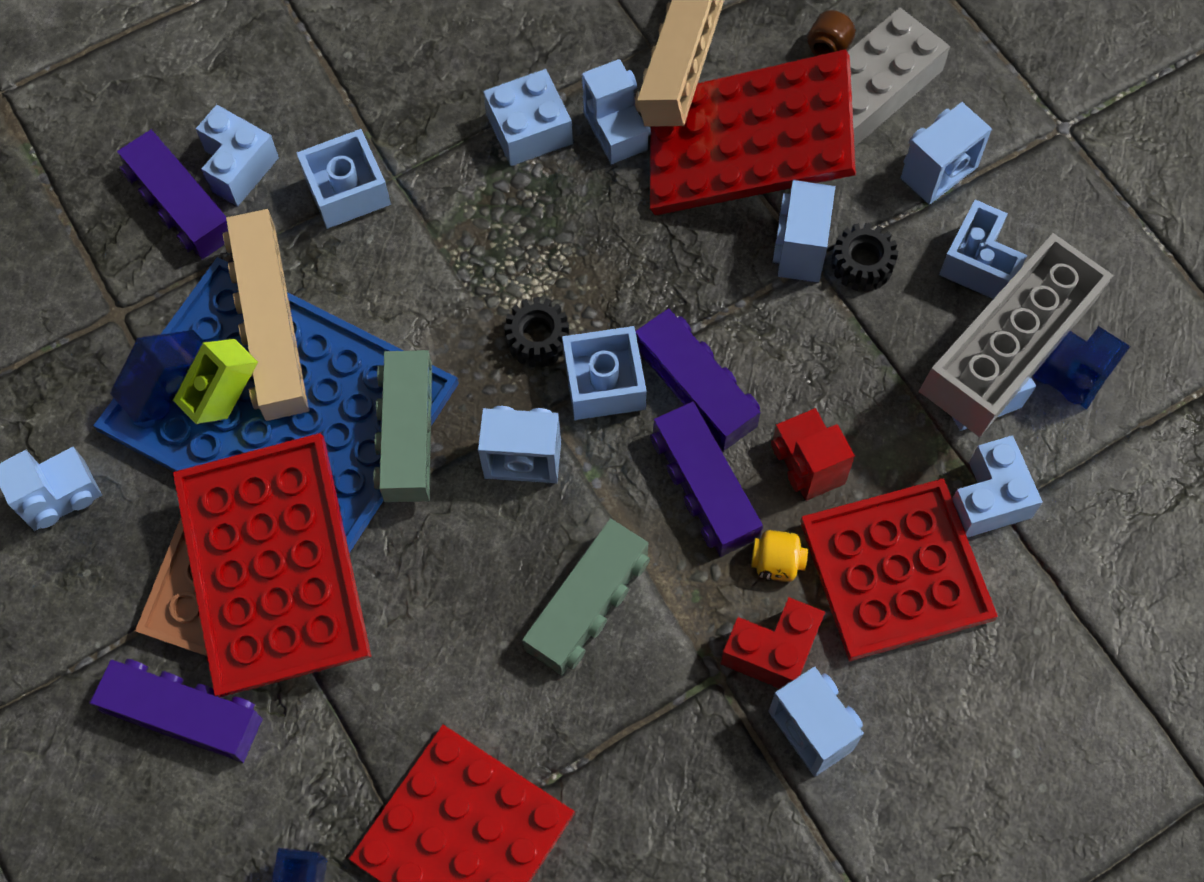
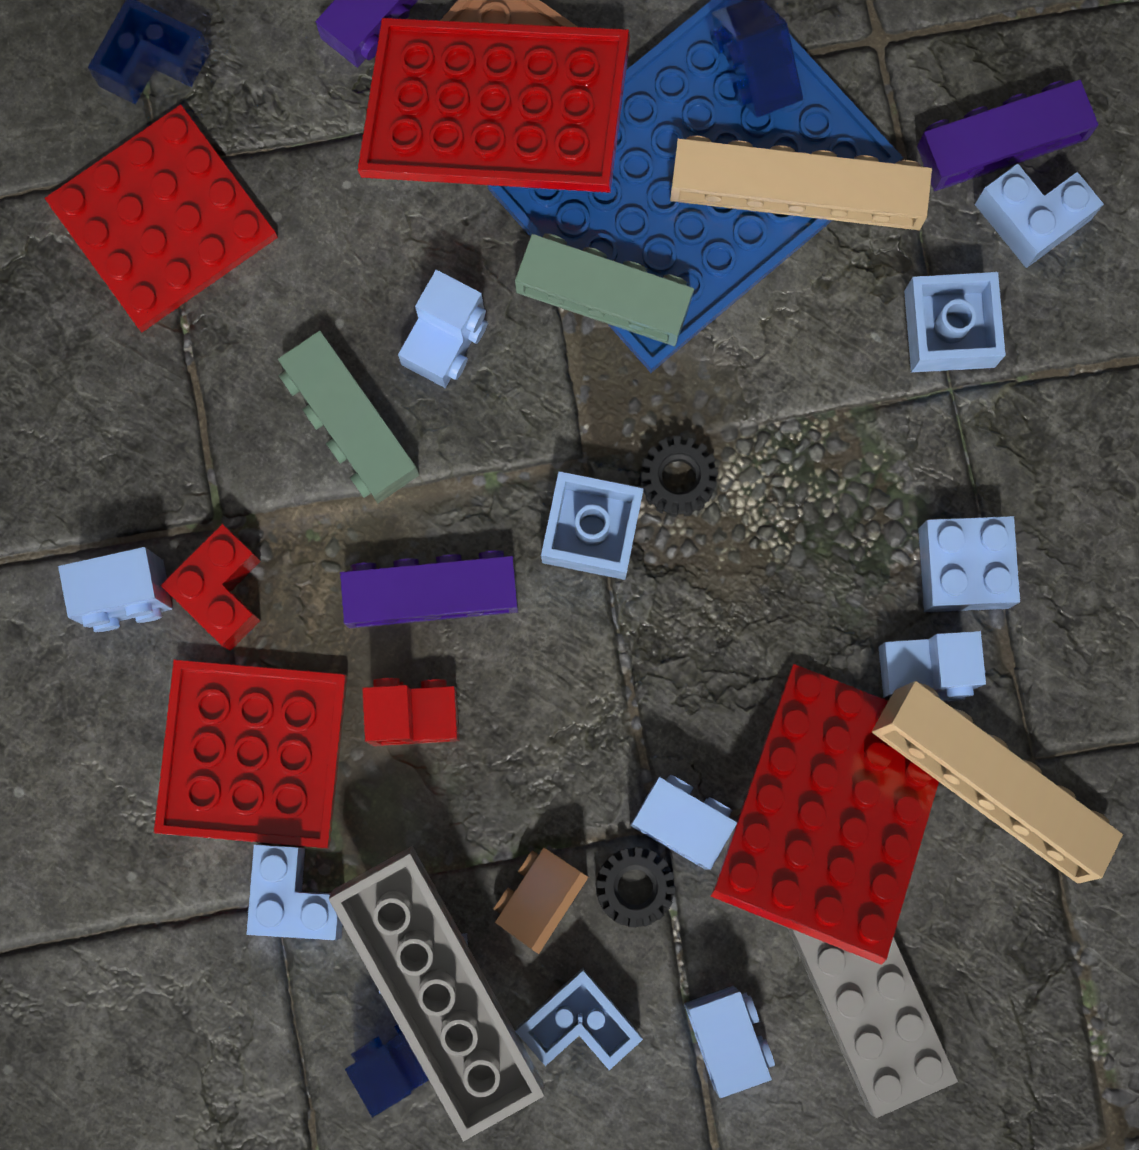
camera: 110 degrees right, 15 degrees up
(215, 380) = (723, 101): lime brick -> none
(483, 546) = (447, 323): none -> light blue brick
(520, 444) = (536, 402): light blue brick -> none
(696, 377) = (552, 629): dark purple brick -> none
(778, 556) = (314, 633): yellow head -> none
(831, 33) = (958, 983): reddish brown head -> none
(908, 305) = (540, 899): none -> medium nougat slope

